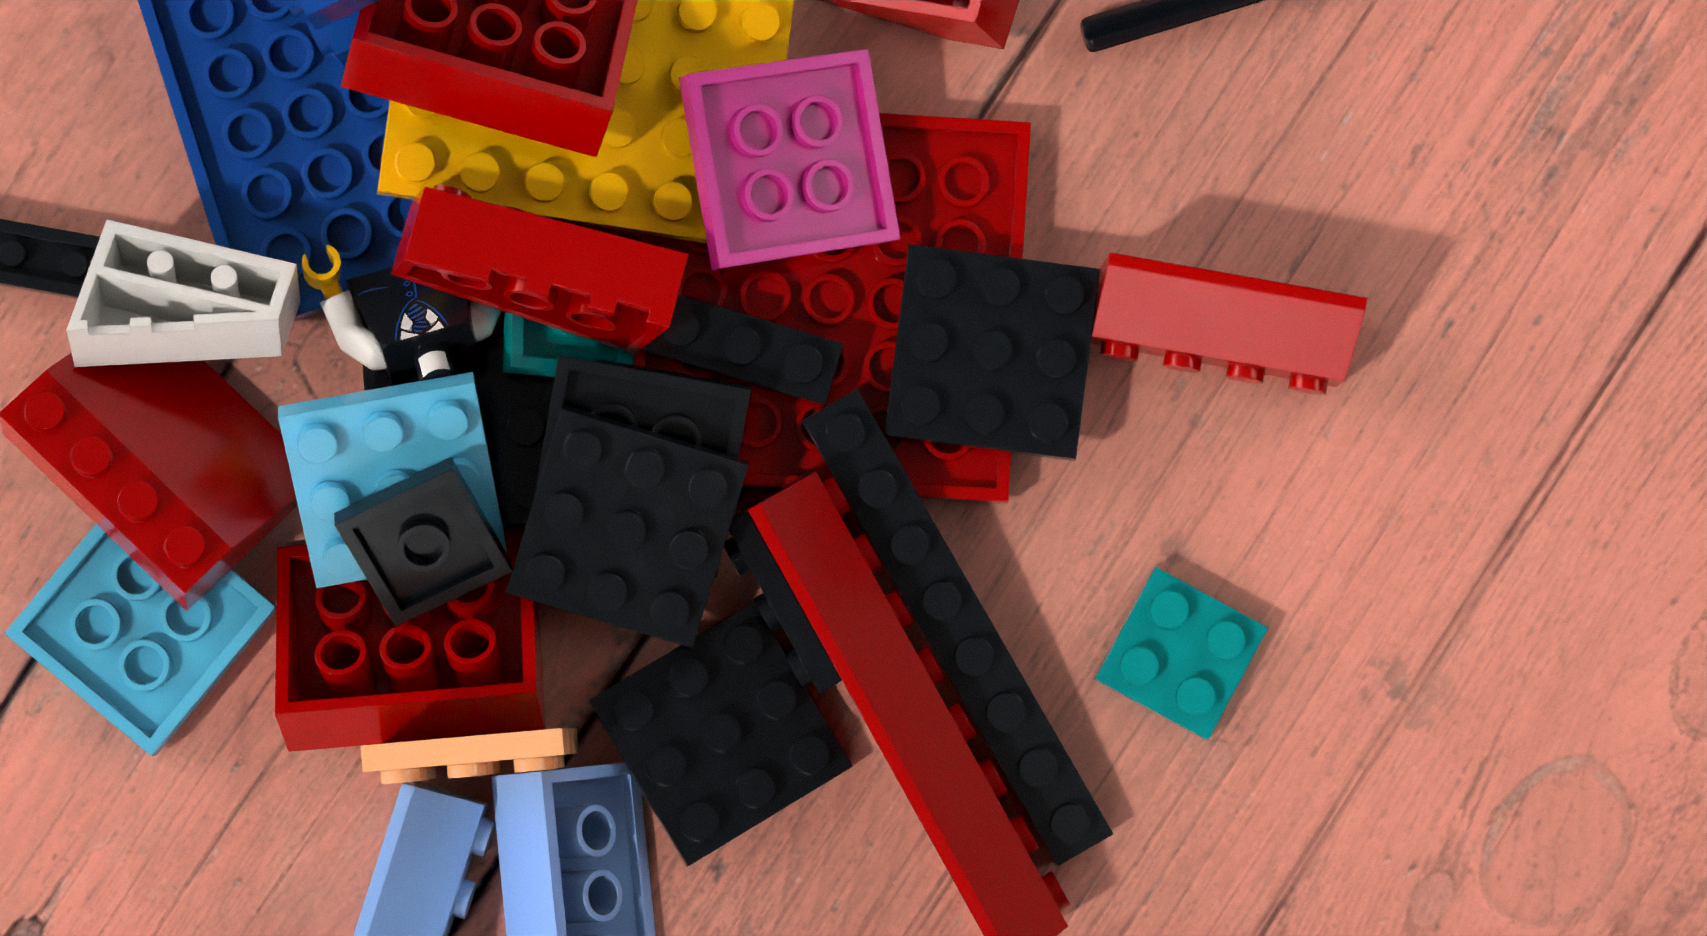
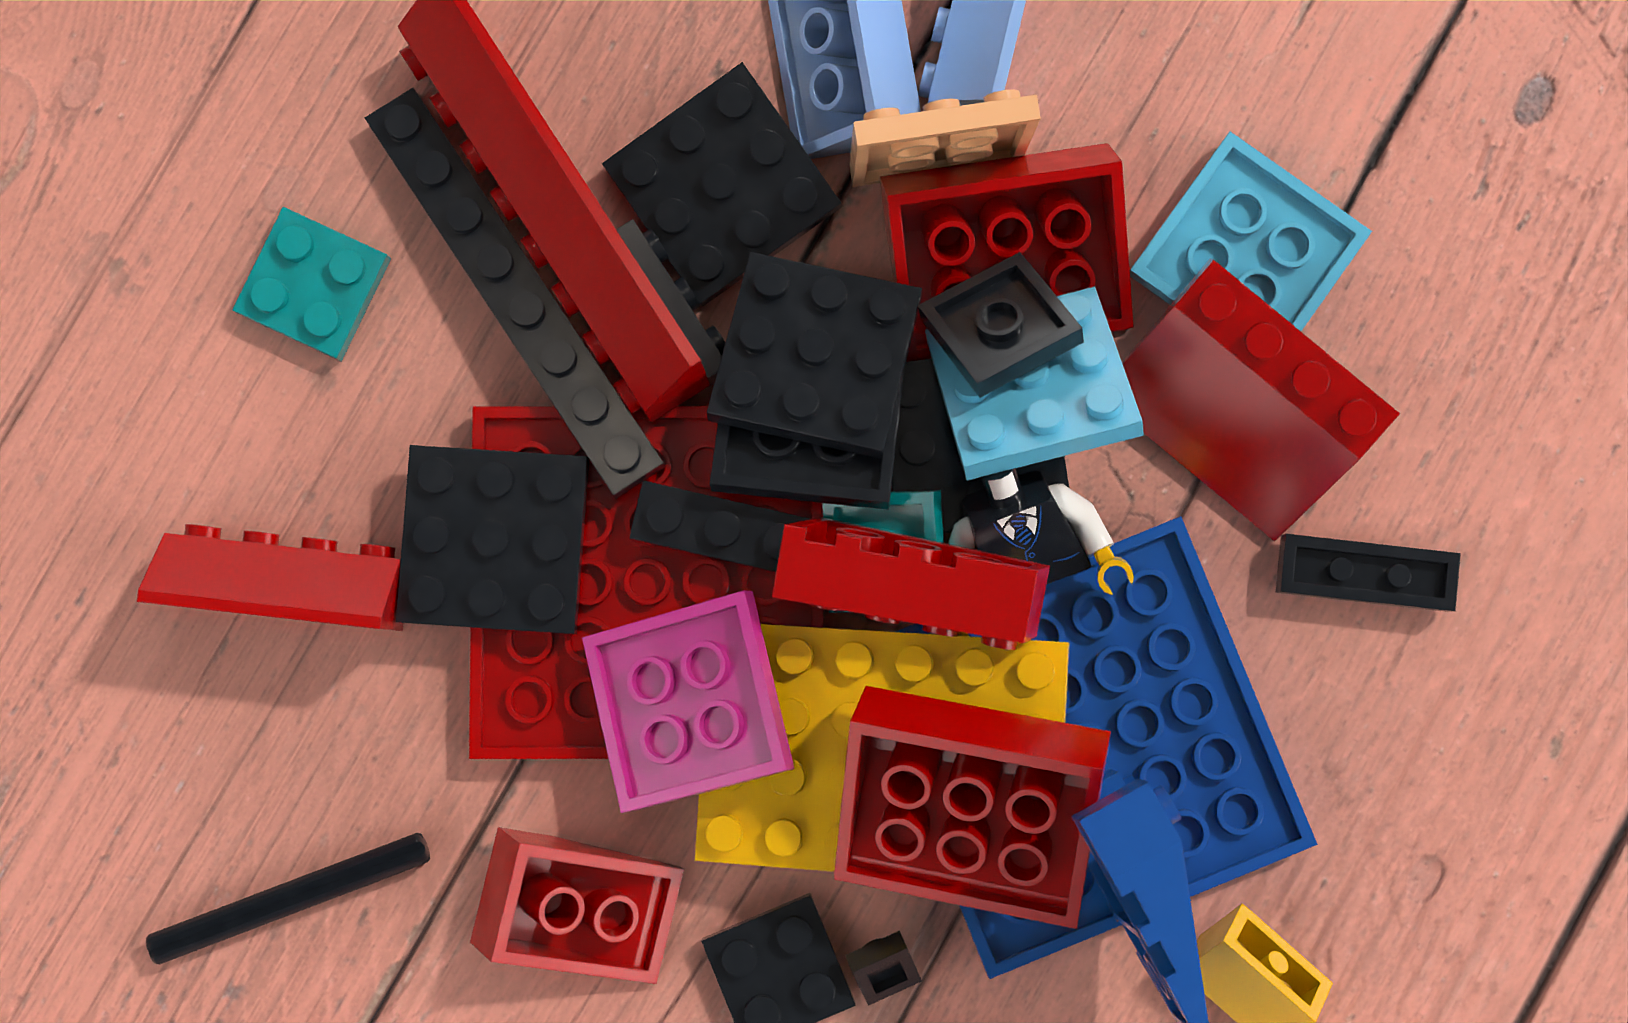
camera: 175 degrees right, 0 degrees up
(179, 301) = (1244, 532): white wedge -> none

